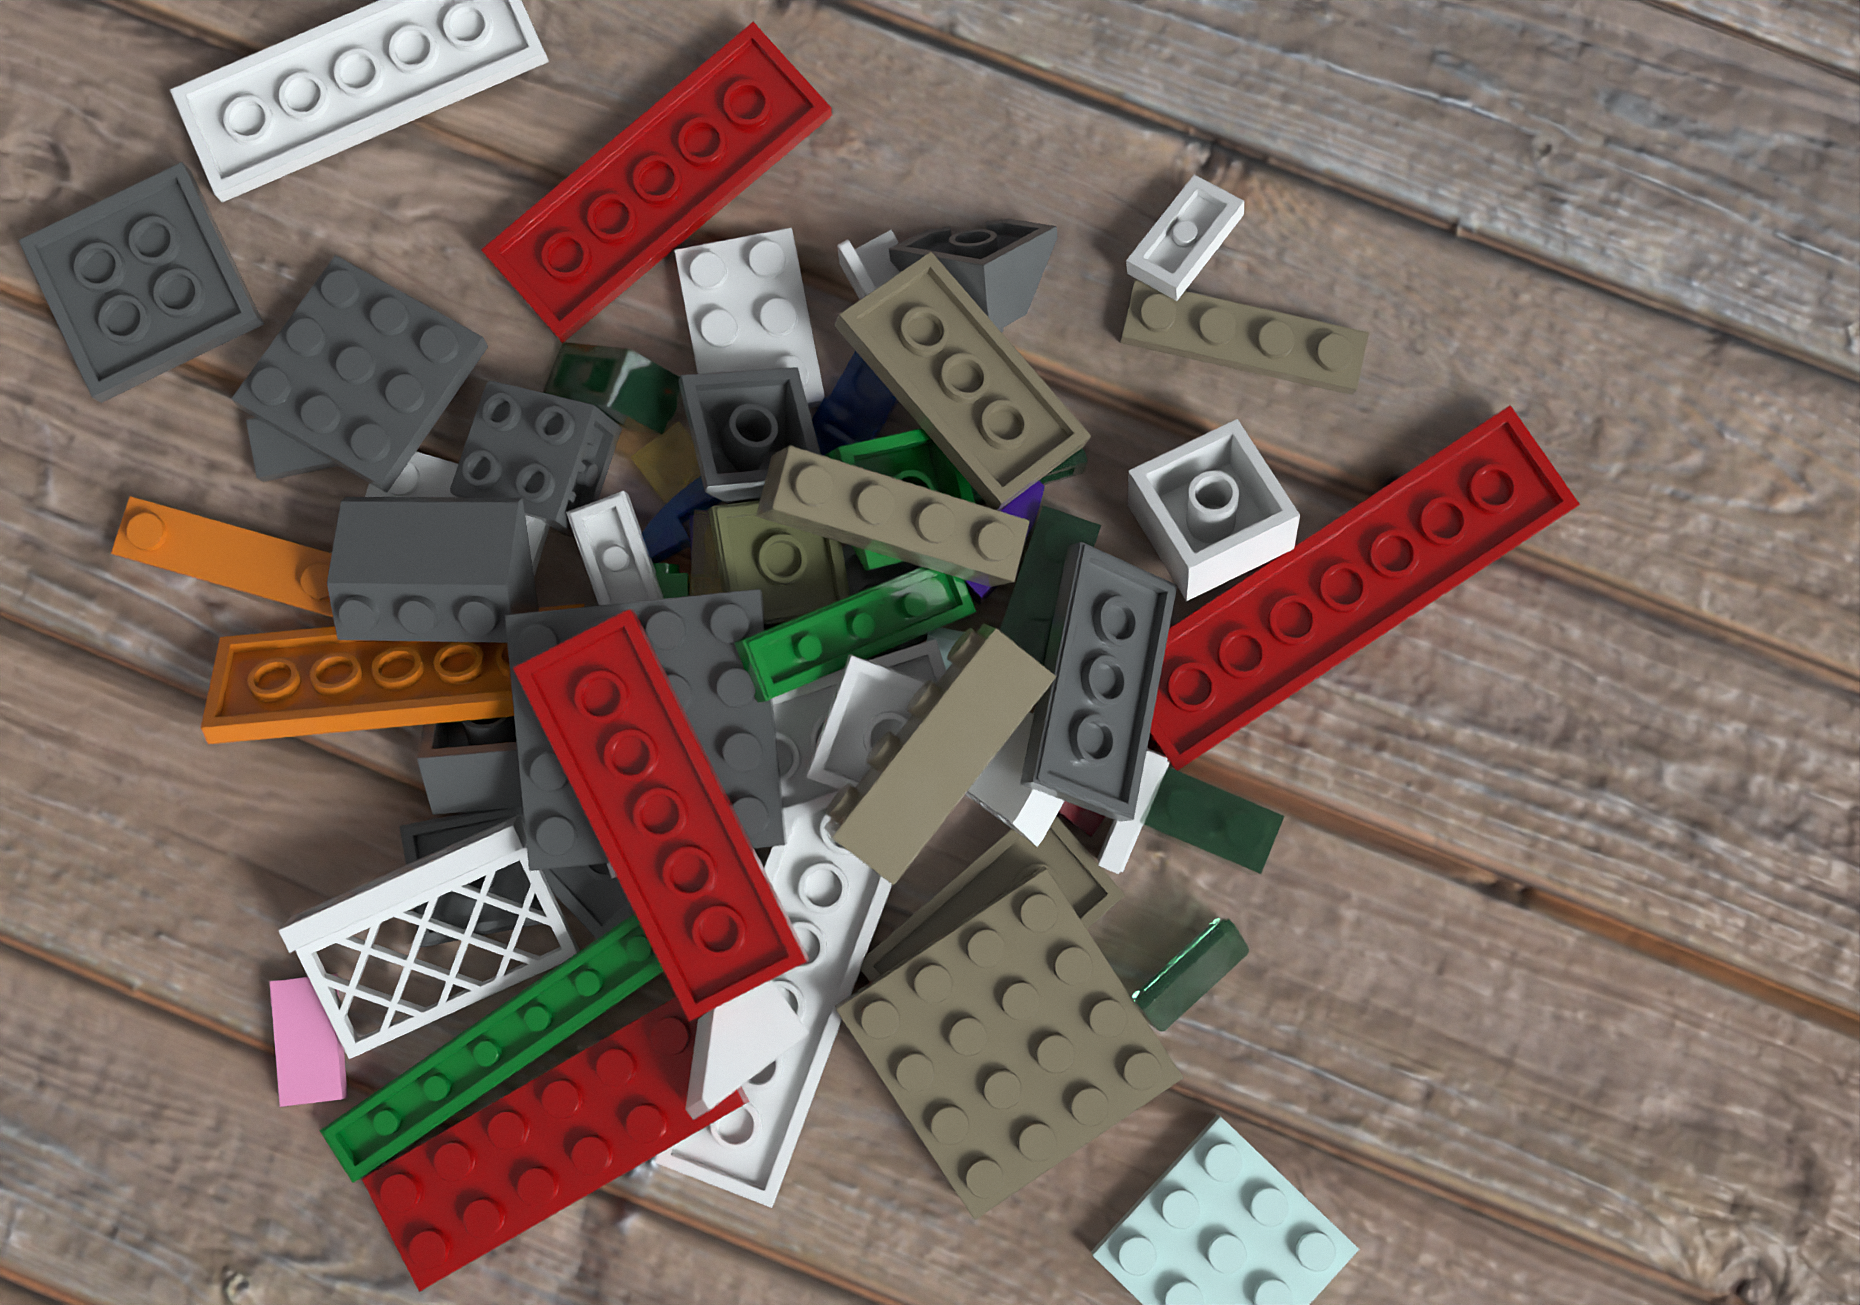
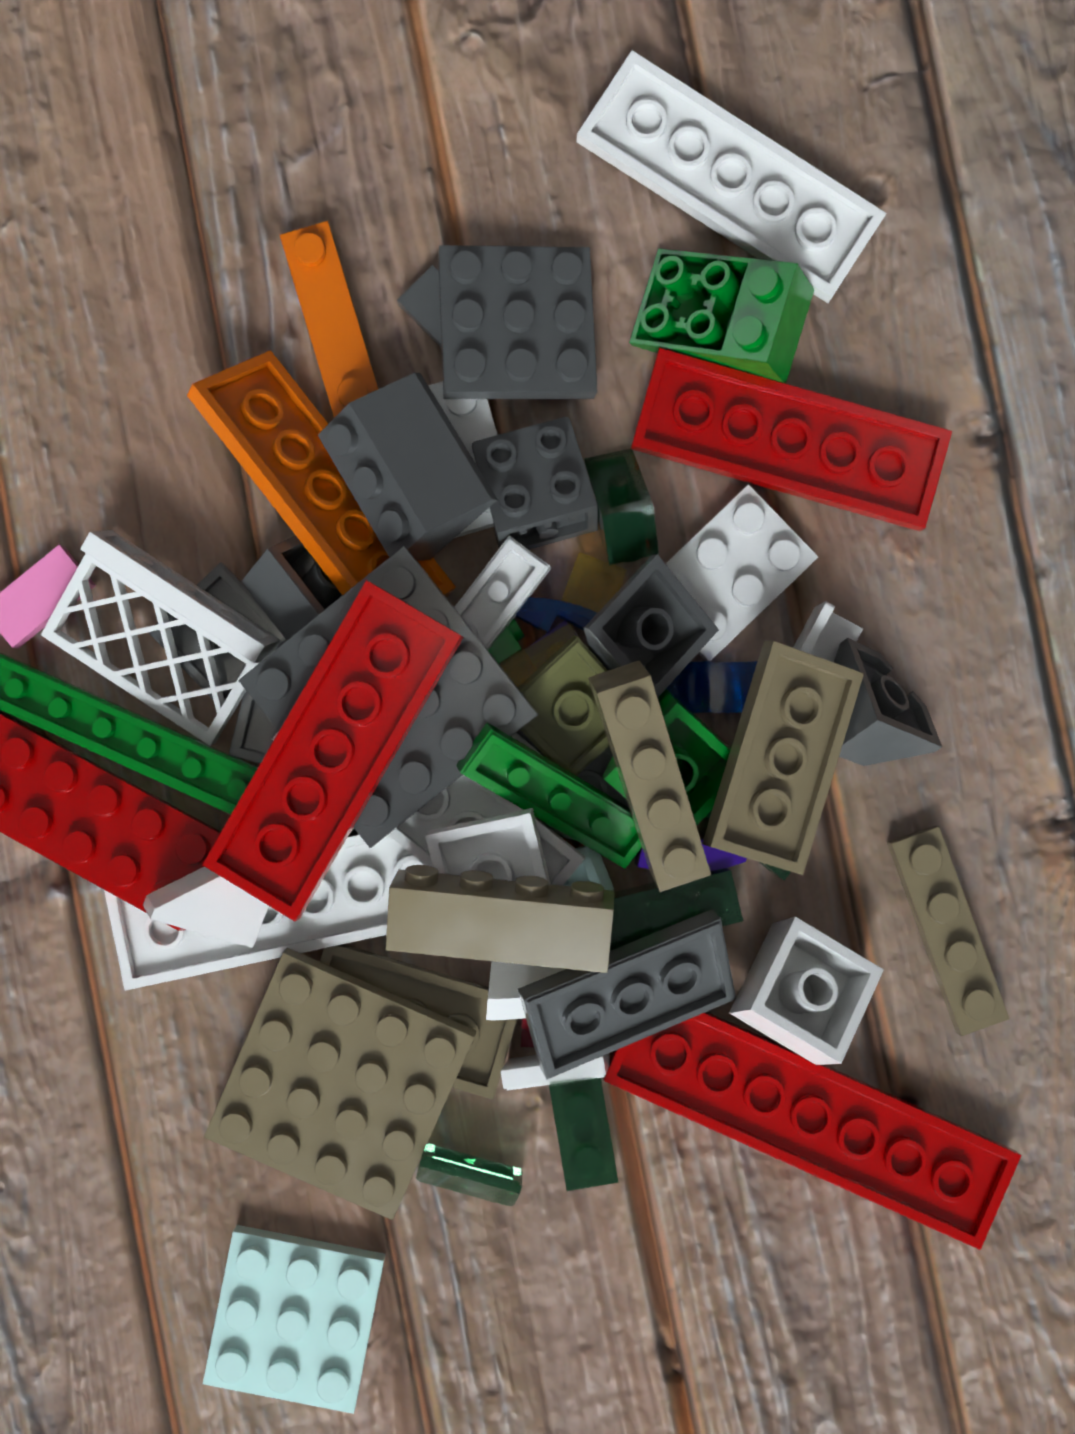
camera: 55 degrees right, 5 degrees up
(141, 282) = (482, 124): dark grey plate -> none
(487, 163) = (725, 310): none -> green slope
(1185, 237) = (994, 844): white plate -> none

